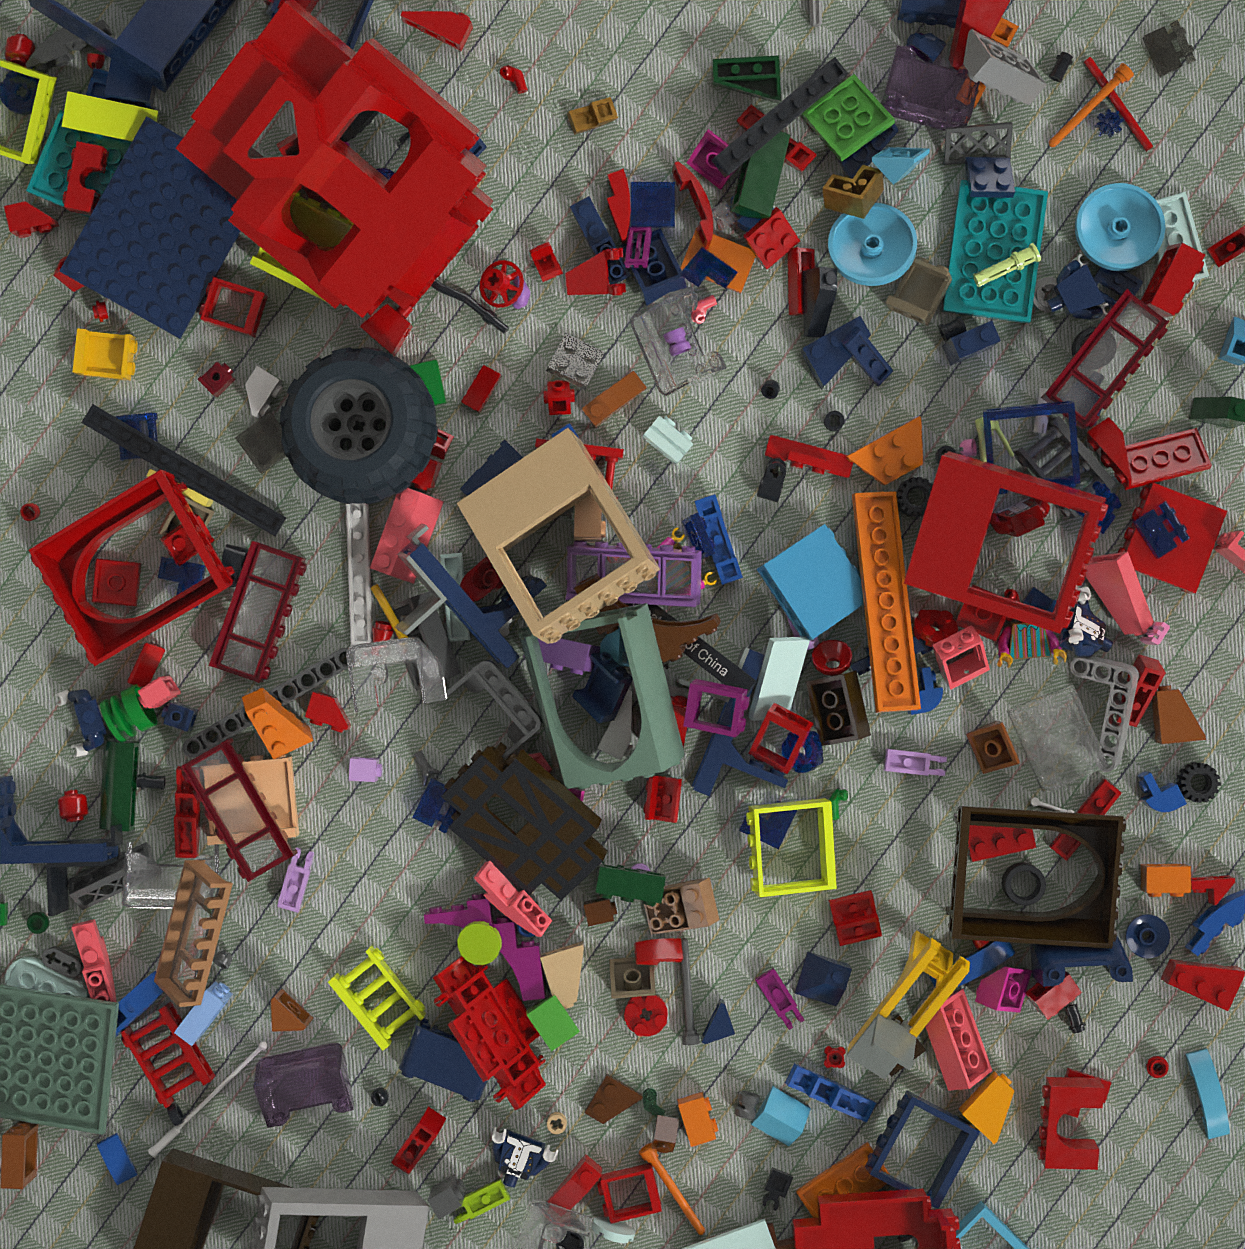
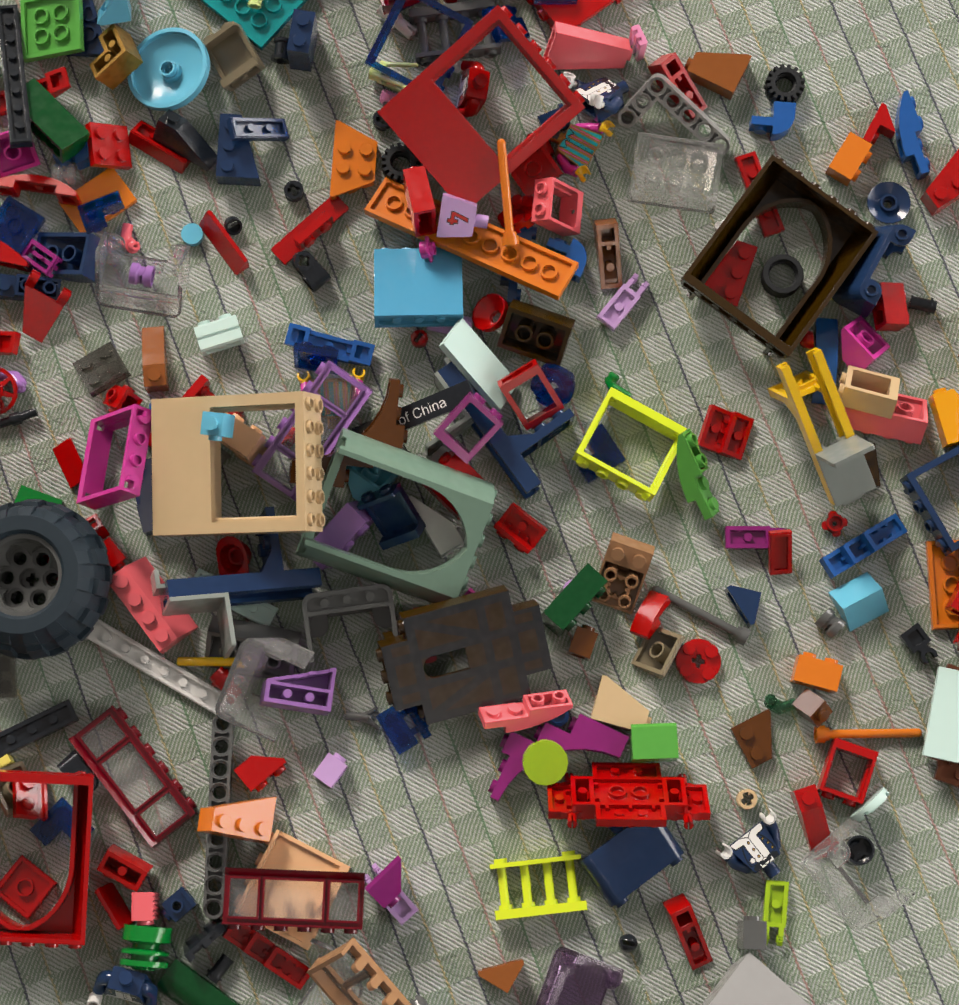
camera: 65 degrees left, 10 degrees down
(163, 754) = (194, 943): none -> black wing
(180, 654) = (124, 867): none -> red brick
(298, 876) = (387, 884): none -> magenta slope
(409, 707) = (300, 692): none -> medium lavender wedge
(499, 408) = (97, 456): none -> dark pink window
(576, 502) = (217, 425): none -> medium azure brick
(741, 359) = (192, 234): none -> medium azure tile
(750, 391) = (223, 243): none -> red slope
(773, 615) = (422, 341): none -> red hinge
(780, 1027) = (780, 552): none -> red tile
(802, 912) = (690, 466): none -> bright green slope
(823, 979) = (761, 491): dark blue slope -> none
(852, 571) = (427, 249): none -> dark pink plate
(889, 539) = (420, 201): none -> red brick
(895, 582) = (459, 217): none -> lavender torso
(905, 636) = (509, 236): none -> orange piece
(950, 723) = (608, 253): none -> dark orange slope
(954, 1026) = (869, 391): none -> tan window
(992, 747) = (650, 229): dark orange slope -> none

